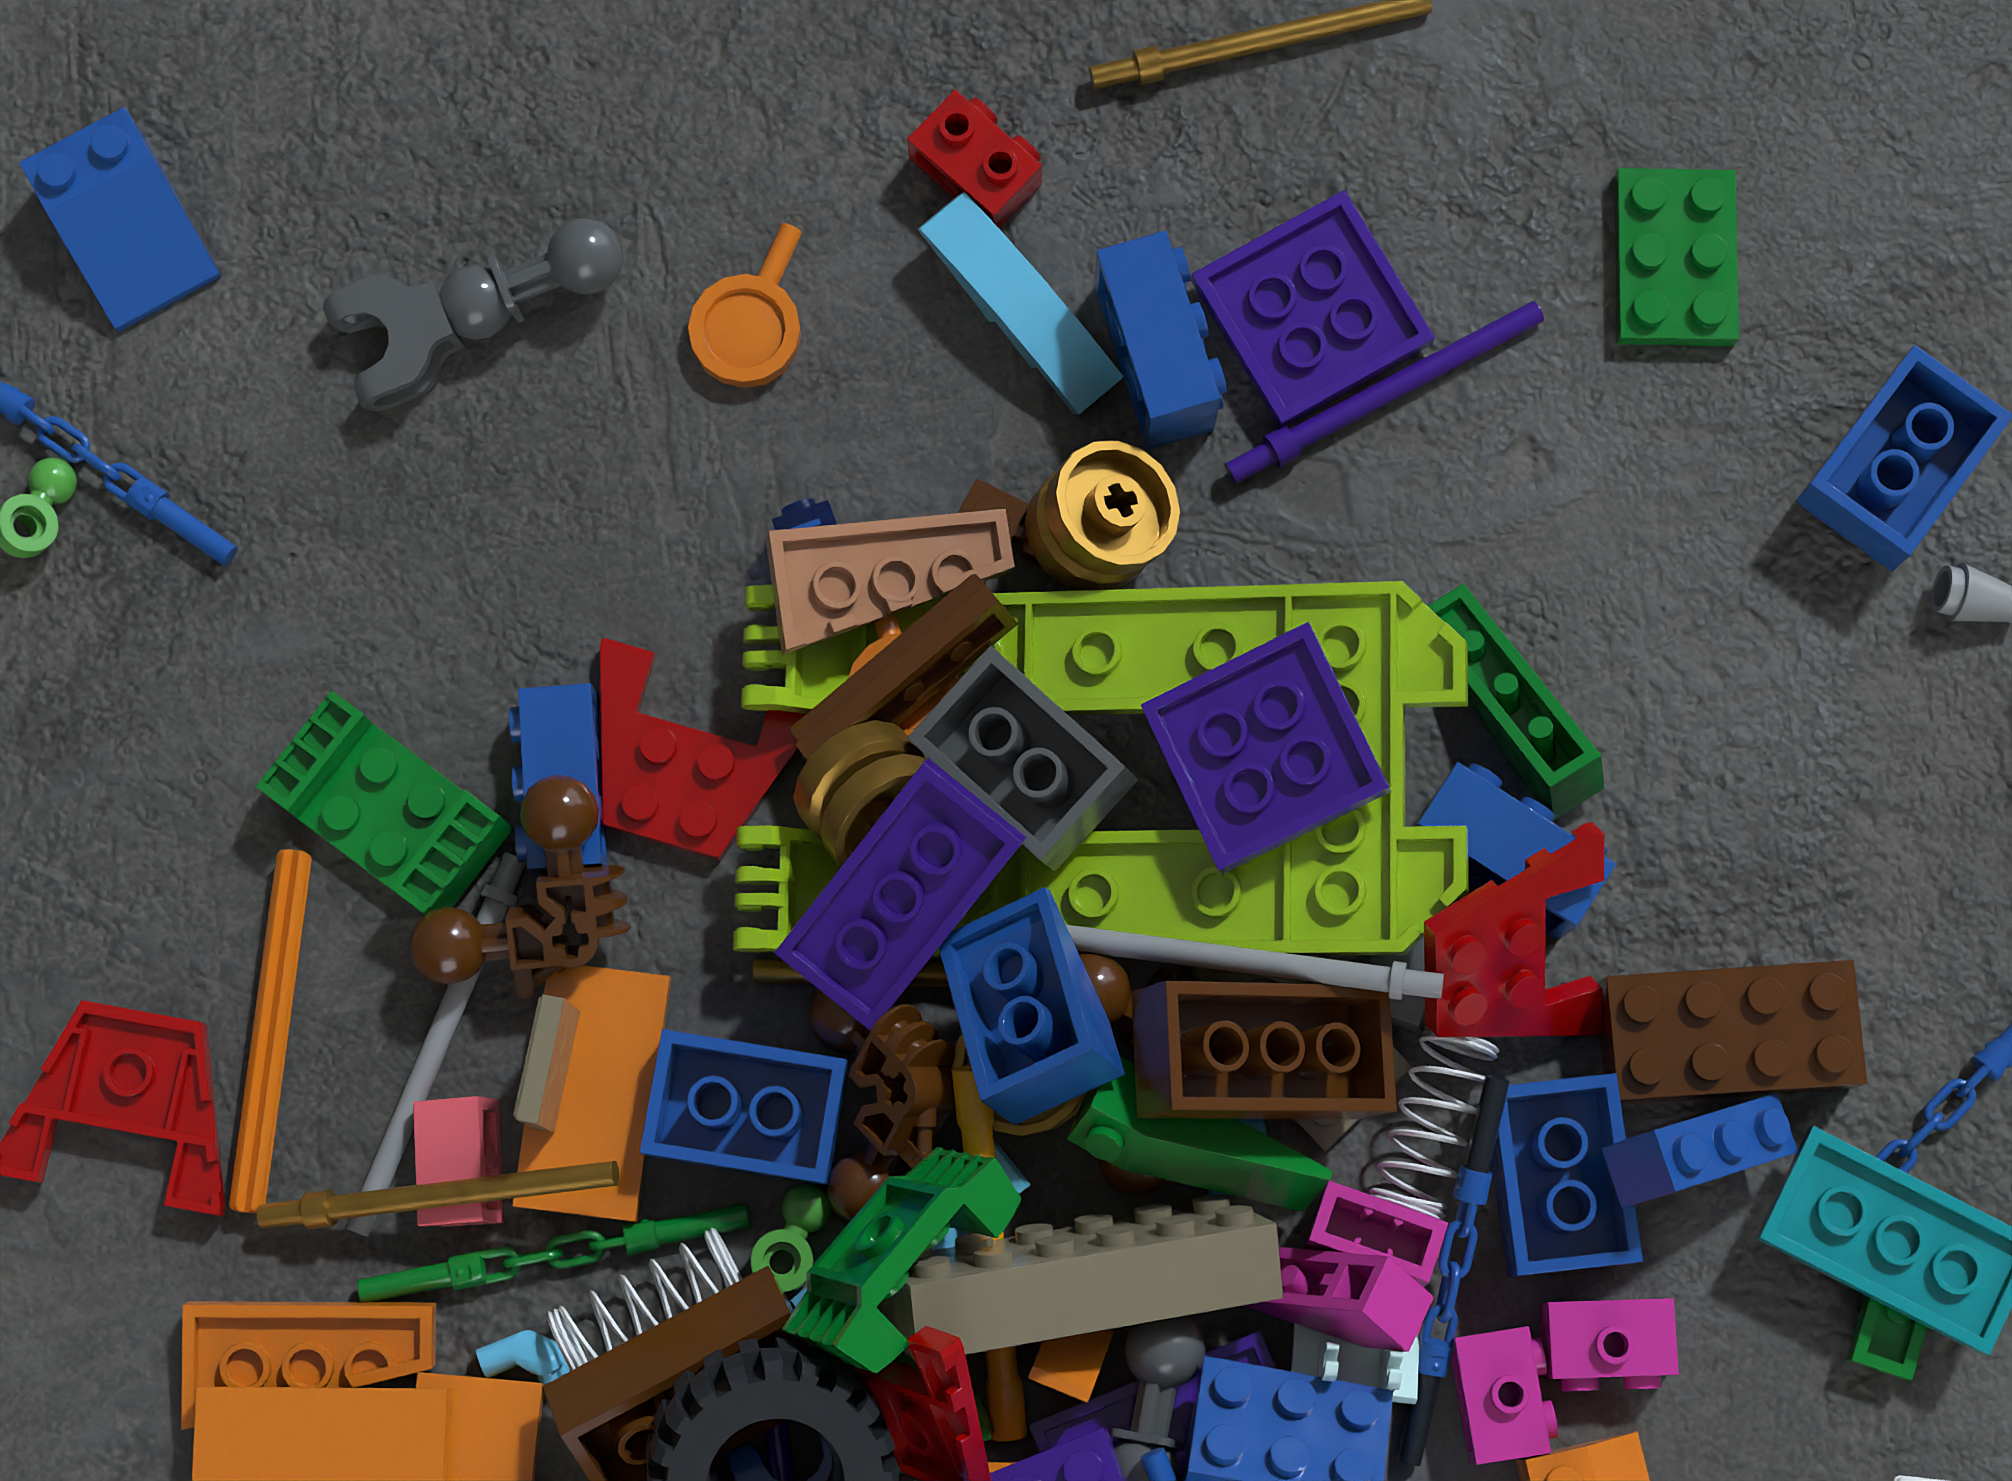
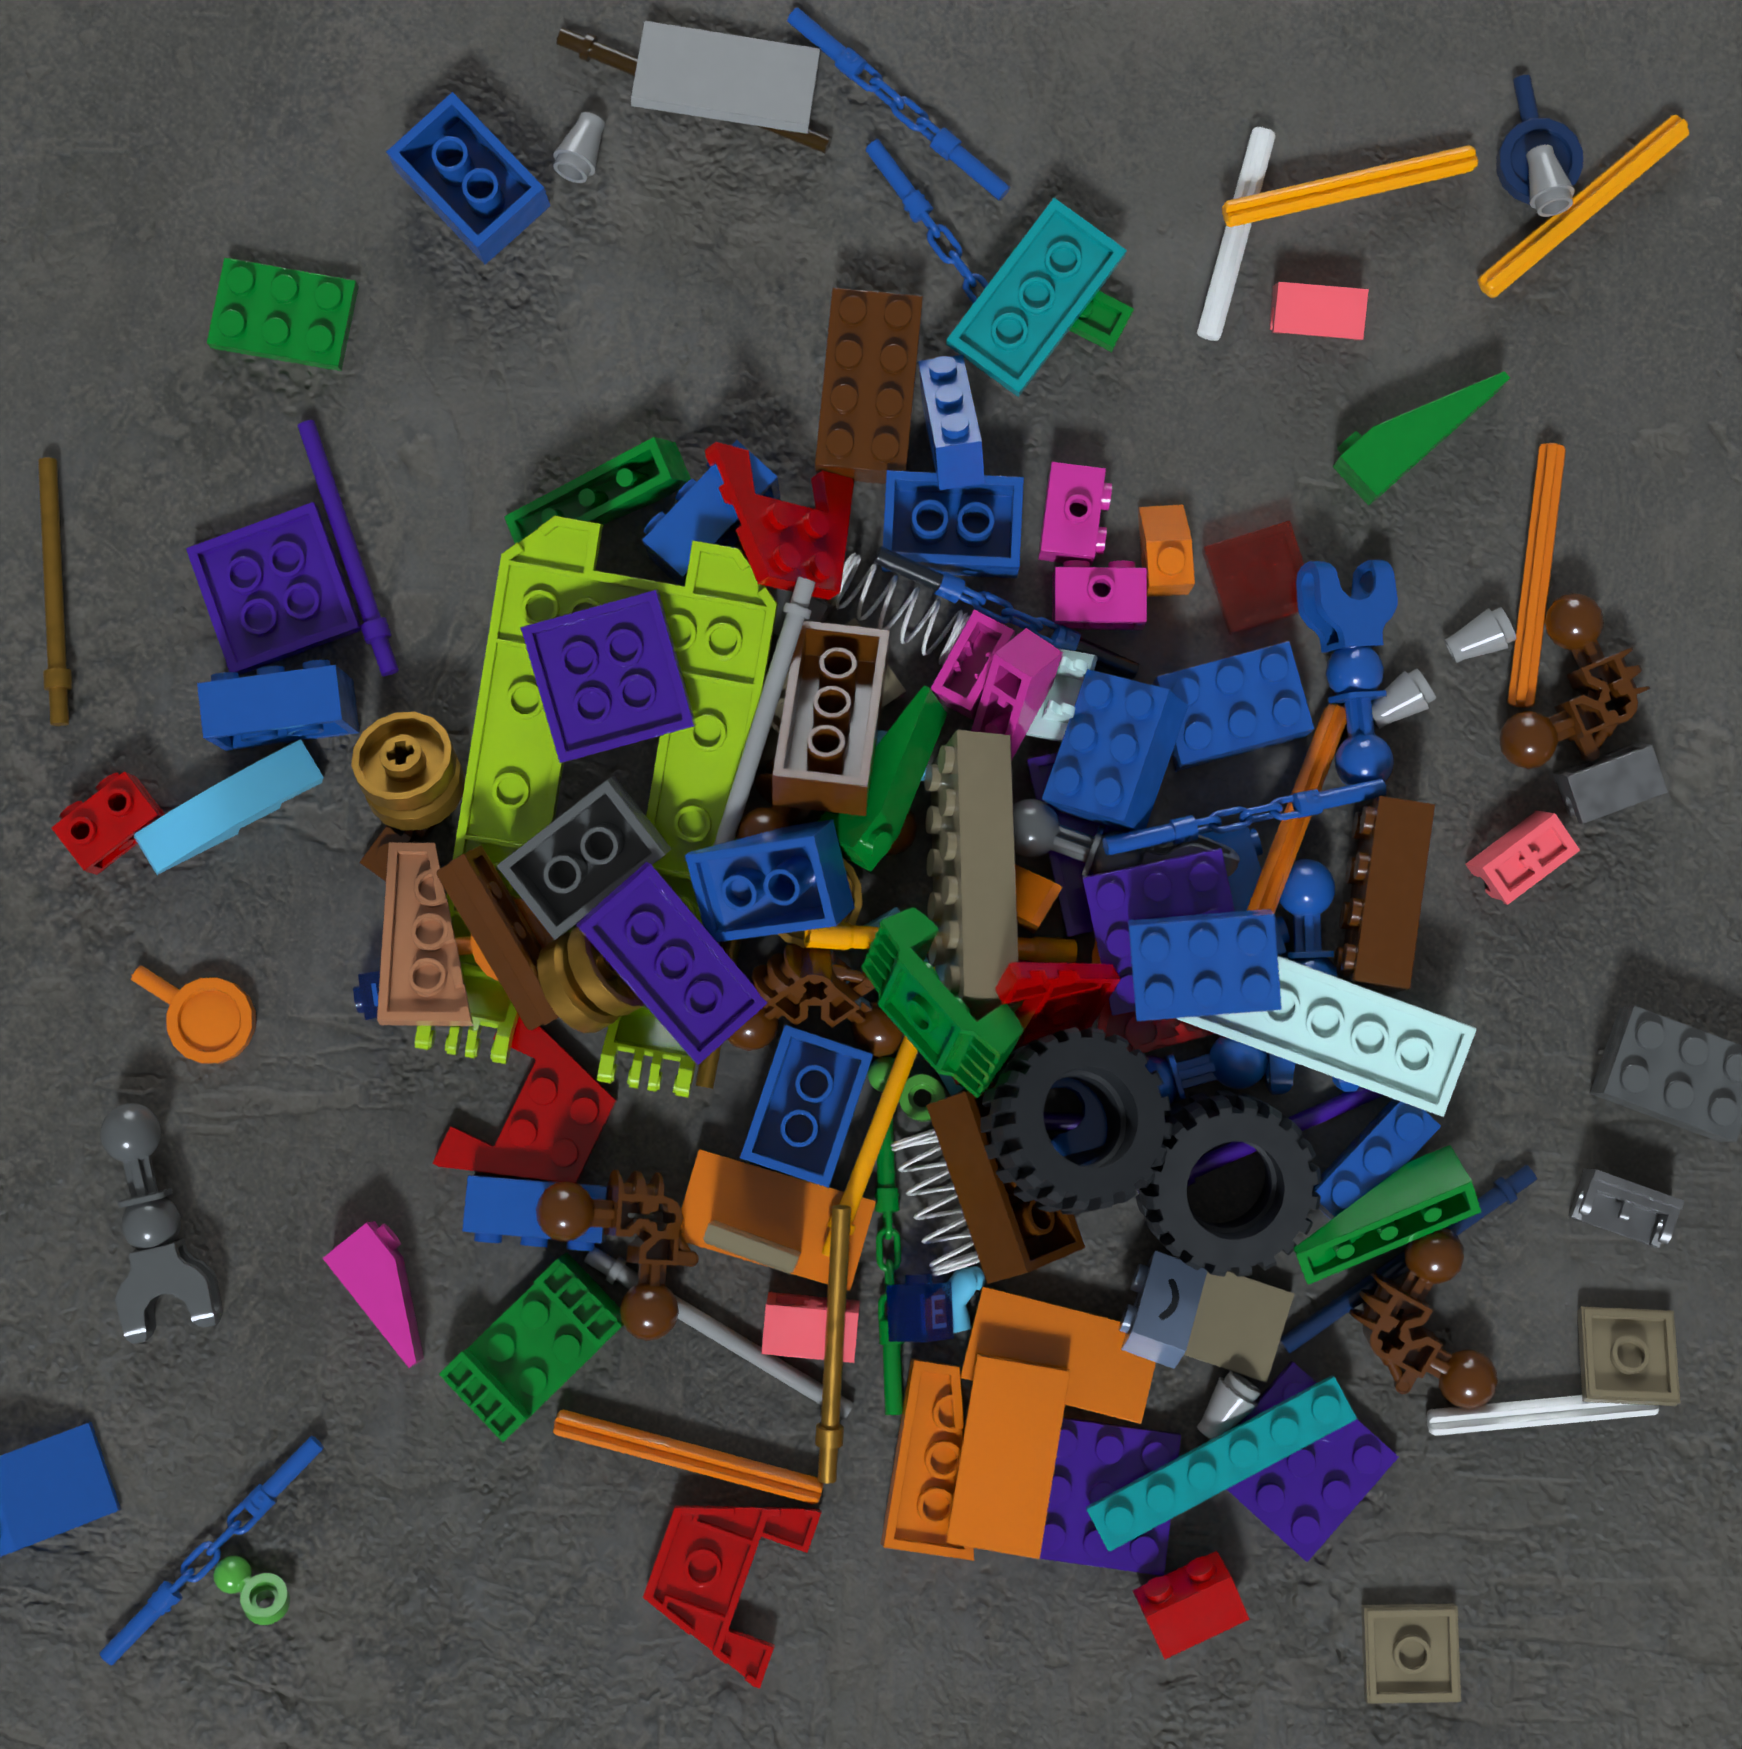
camera: 80 degrees left, 5 degrees up
(441, 595) = (379, 1283): none -> dark pink slope
(499, 1303) = (919, 1309): none -> clear blue brick
(724, 1206) = (876, 1133): none -> light orange bar

